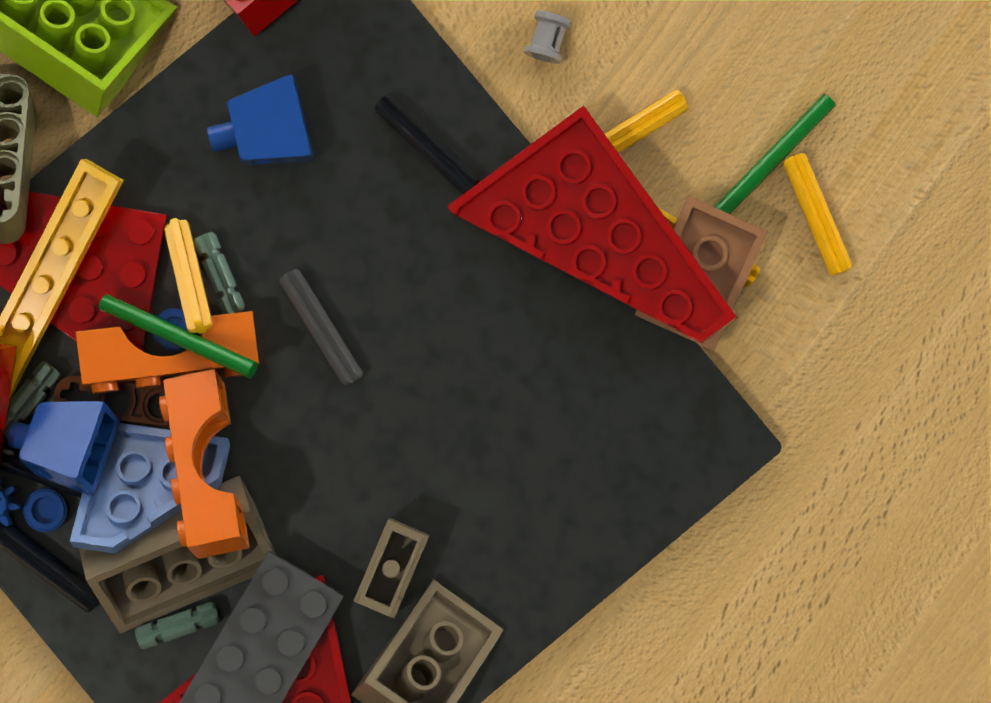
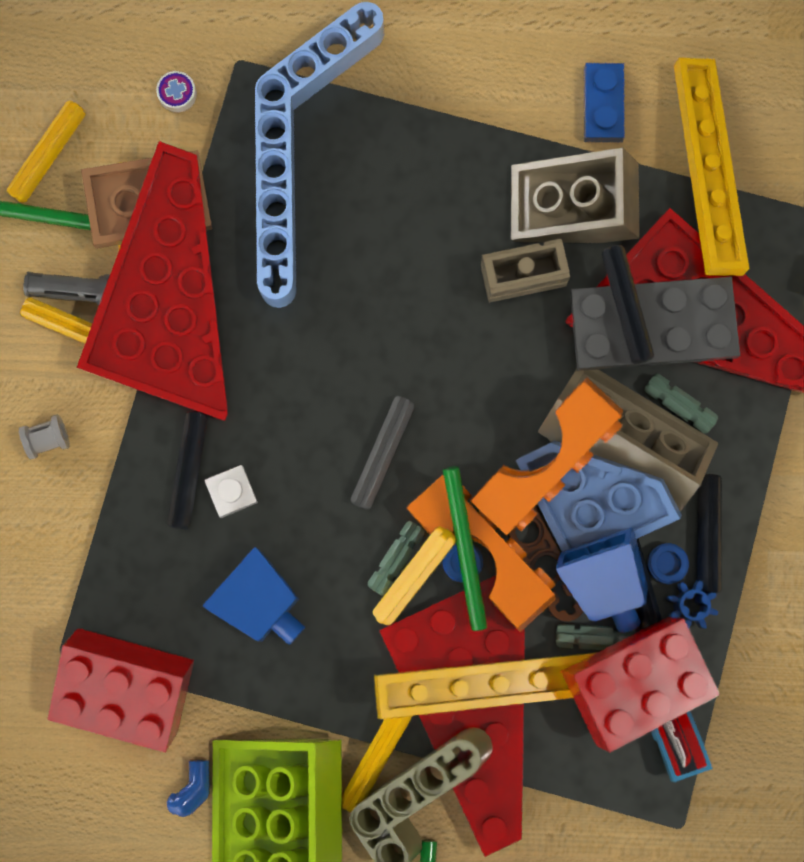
camera: 120 degrees left, 5 degrees down
(55, 127) = (374, 761): none -> yellow axle
(291, 633) = (627, 304): none -> black axle
(381, 169) = (231, 491): none -> white plate
(660, 428) = (281, 150): none -> light blue beam
(671, 150) = (65, 287): none -> dark grey pin
(792, 372) = (176, 91): none -> tile

